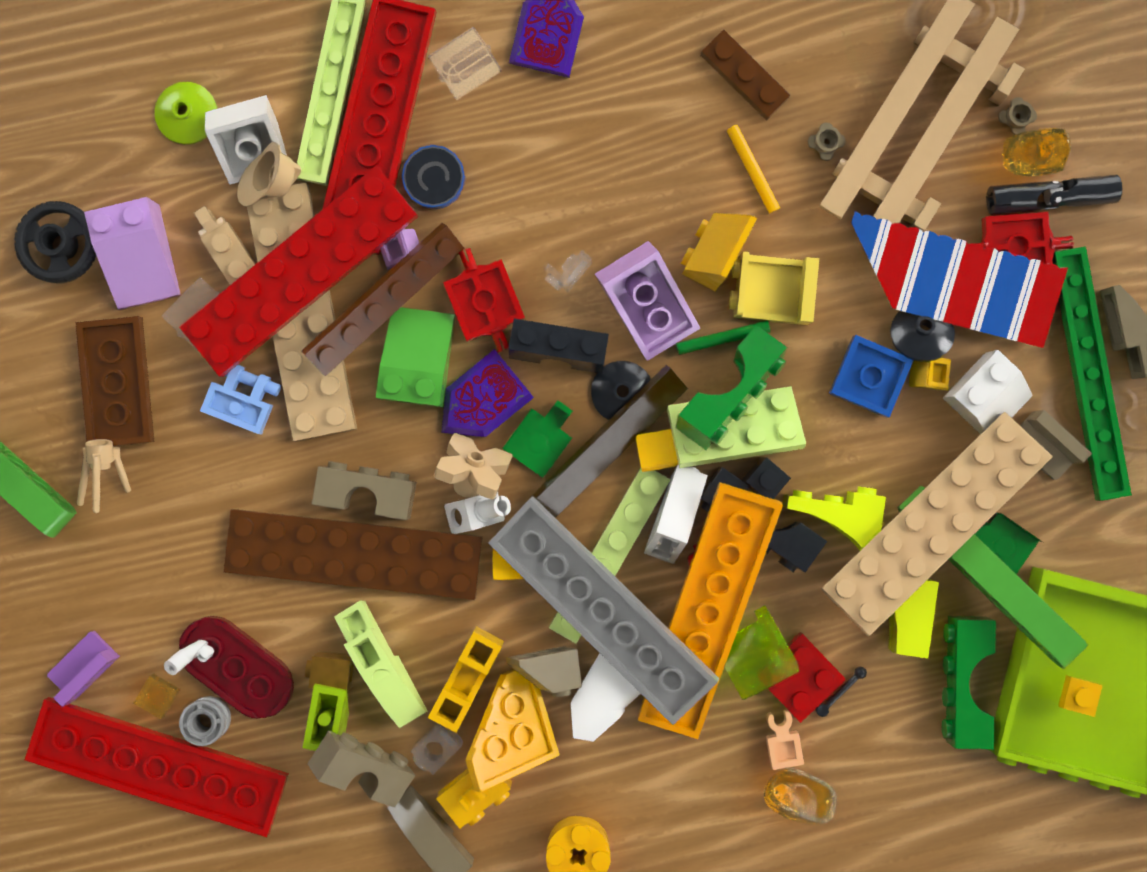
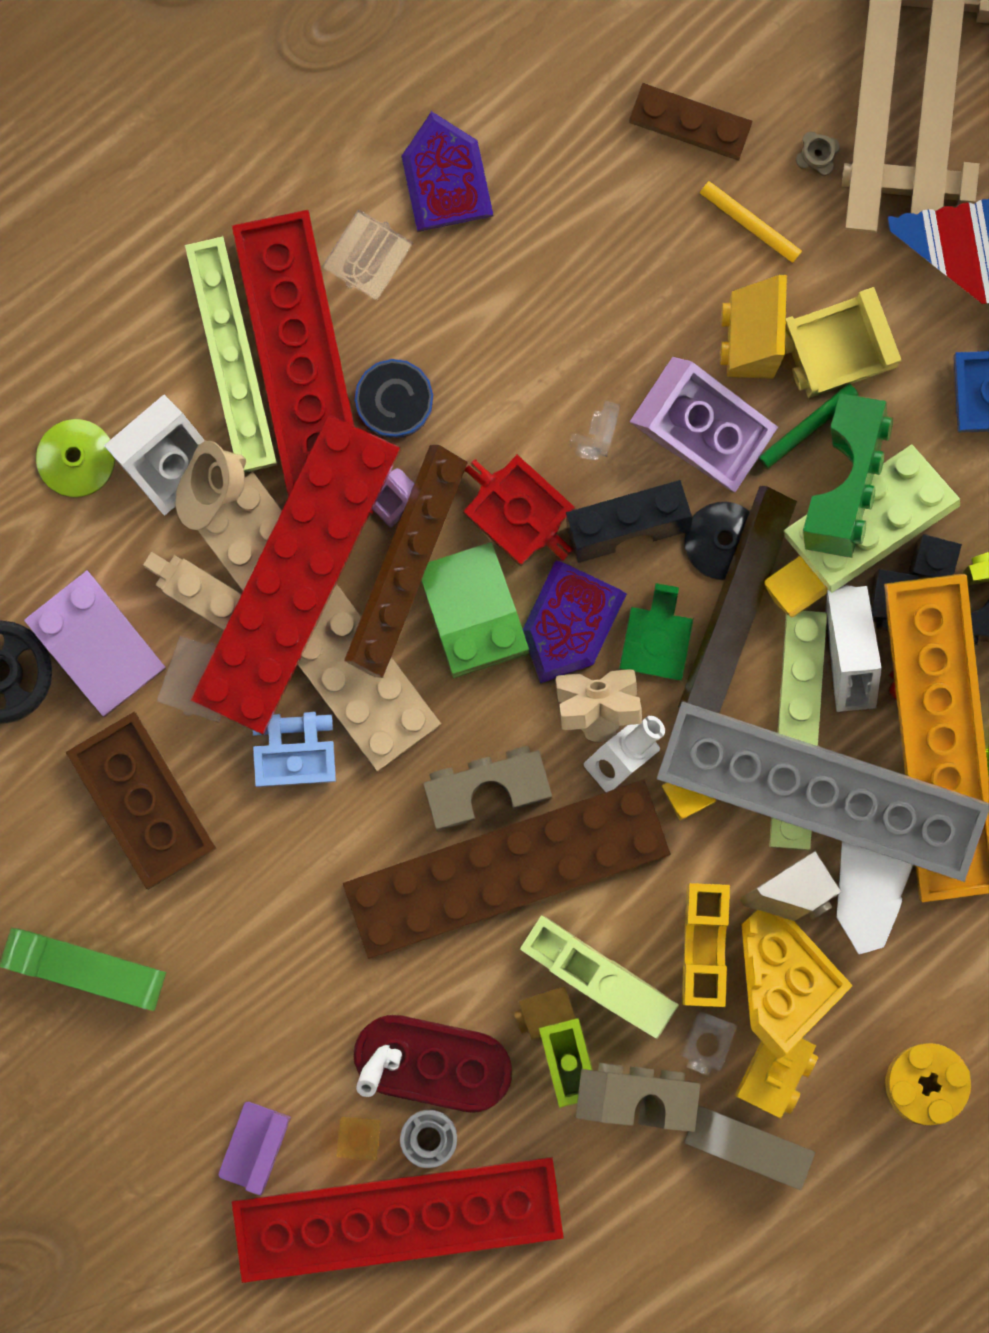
camera: 25 degrees left, 5 degrees down
(98, 456) = (168, 888): tan plant -> none

